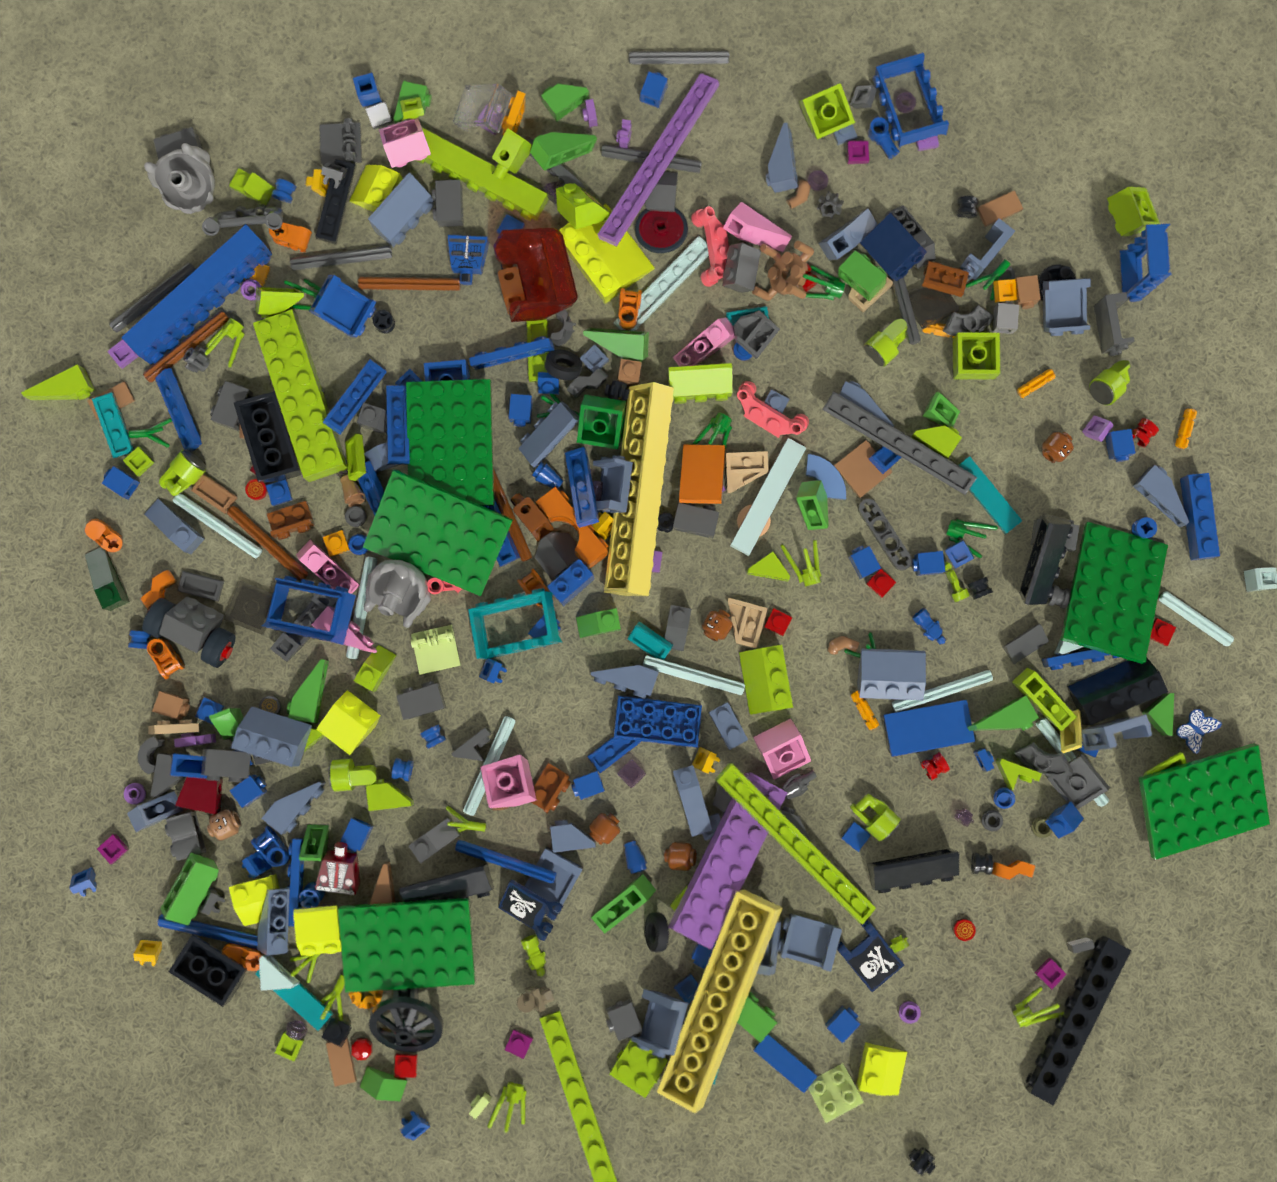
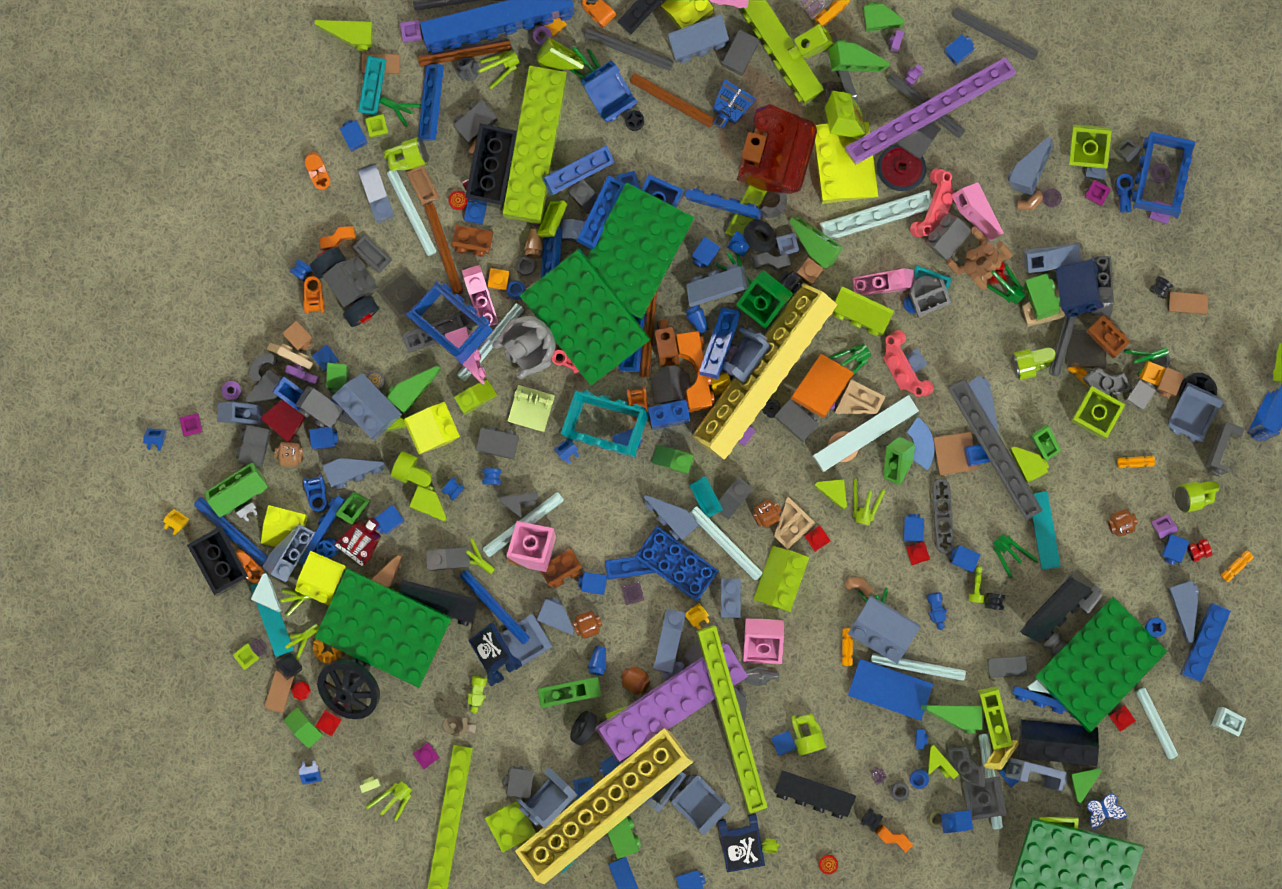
camera: 30 degrees right, 0 degrees up
(105, 580) = (300, 206): dark green slope -> none
(256, 865) = (297, 500): blue tile -> none
(510, 223) = (779, 98): blue plate -> none
(629, 305) = (840, 216): orange piece -> none
(832, 199) = (1049, 224): dark grey gear -> none
(935, 766) = (882, 720): red wheel -> none
(959, 553) = (994, 565): blue plate -> none
(998, 235) = (1172, 325): sand blue panel -> none

